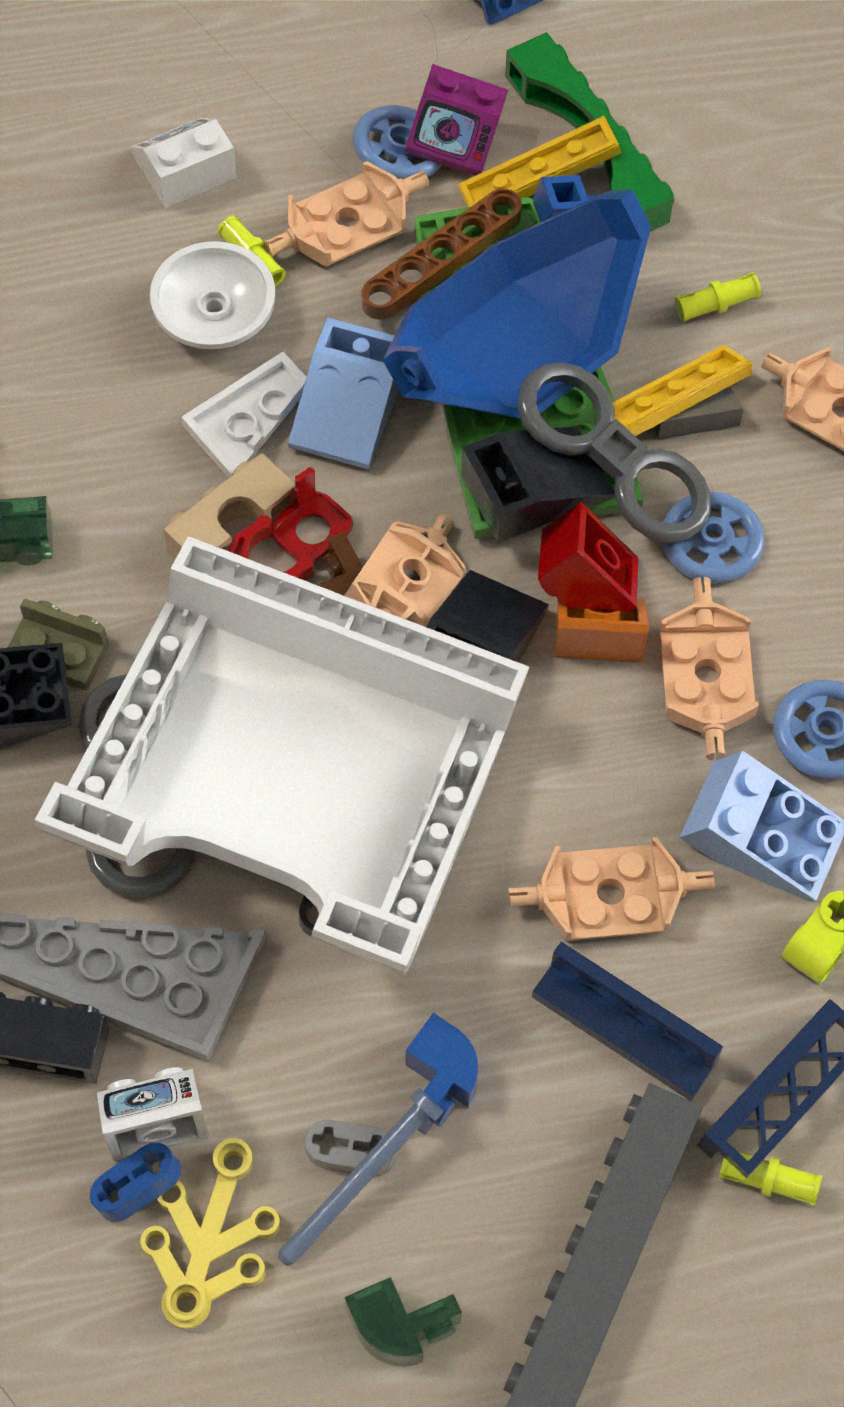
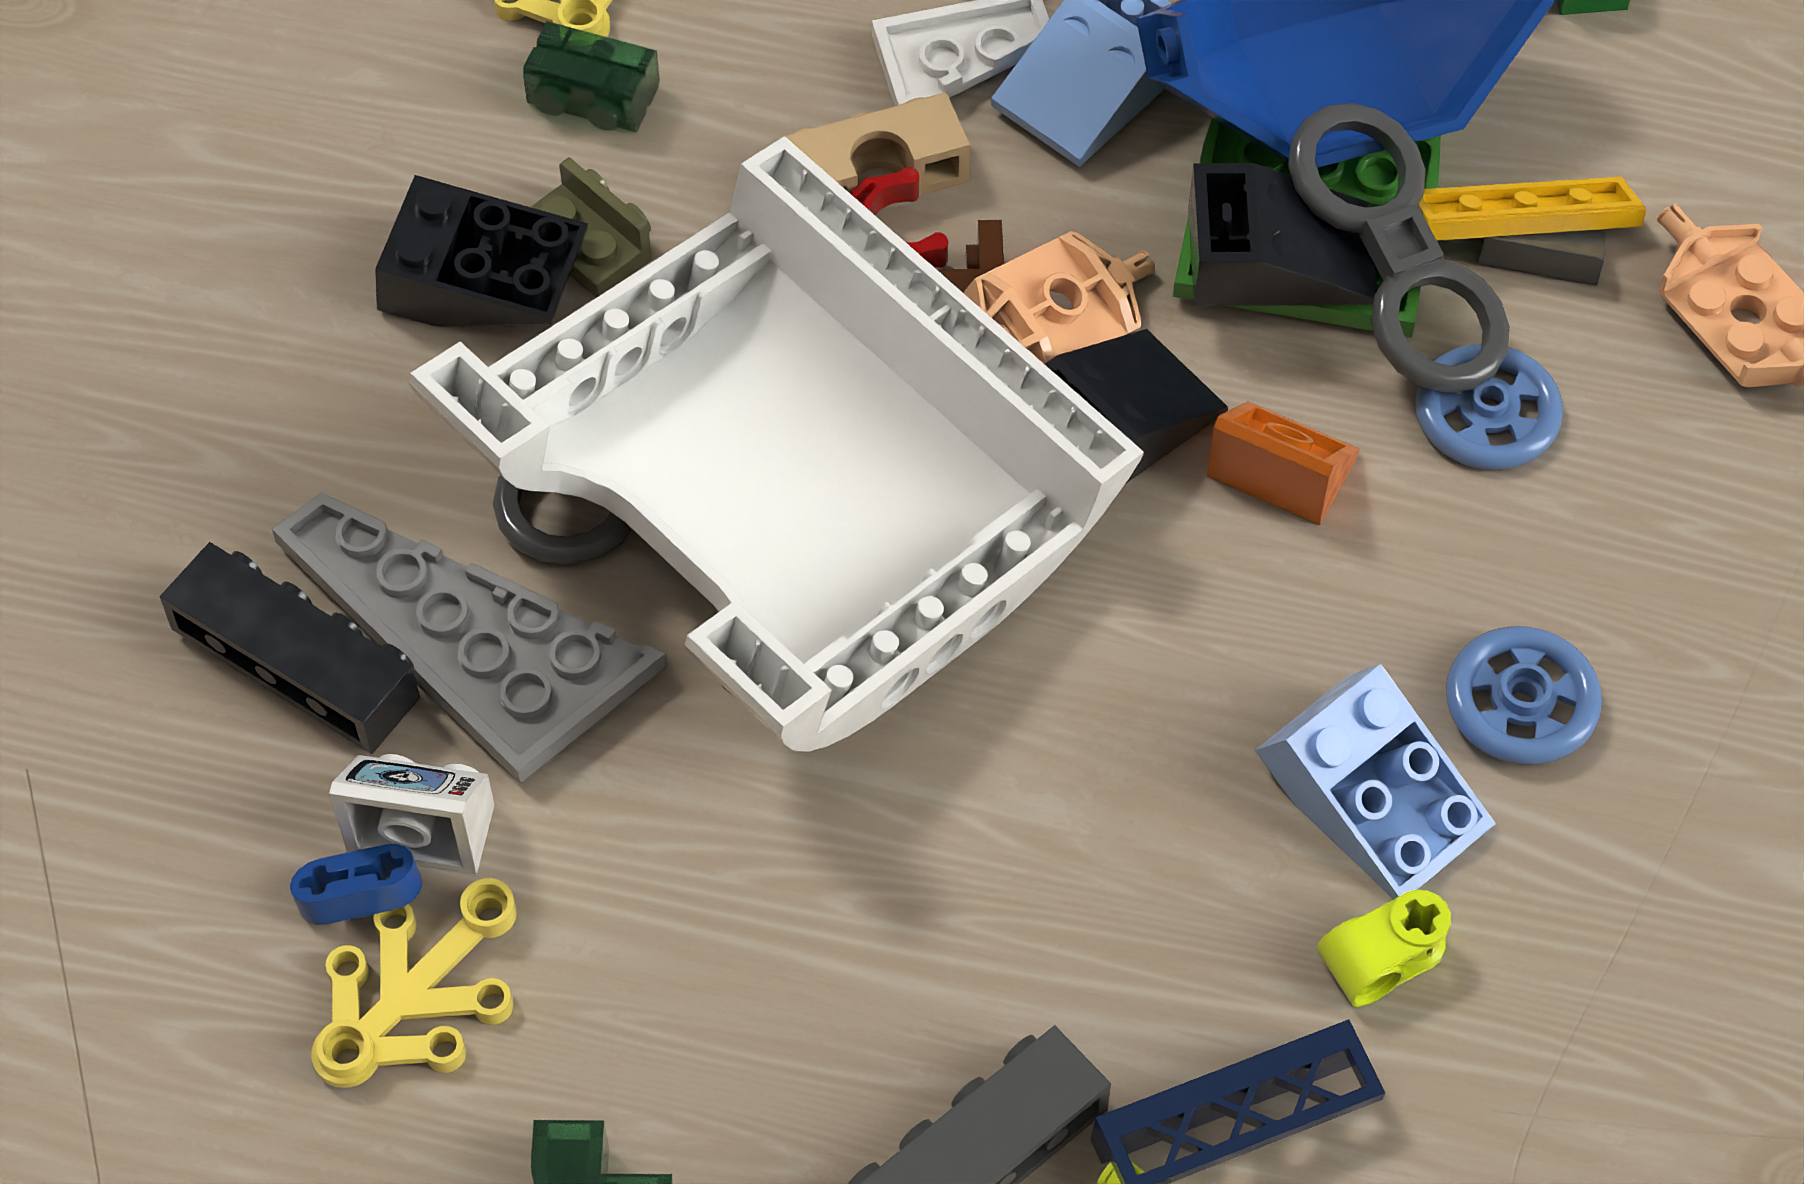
camera: 25 degrees right, 5 degrees down
(308, 504) = (977, 178): red piece -> none
(344, 1134) = (634, 968): light grey beam -> none
(360, 1176) = (744, 933): sand blue bar -> none
(448, 1062) = (810, 910): blue brick -> none
(587, 563) = (1298, 371): red slope -> none
(627, 1022) = (1072, 949): dark blue fence -> none
(643, 874) = (1089, 750): light nougat plate -> none
(712, 638) = (1408, 520): light nougat plate -> none
(718, 297) = (1643, 116): neon yellow pin -> none

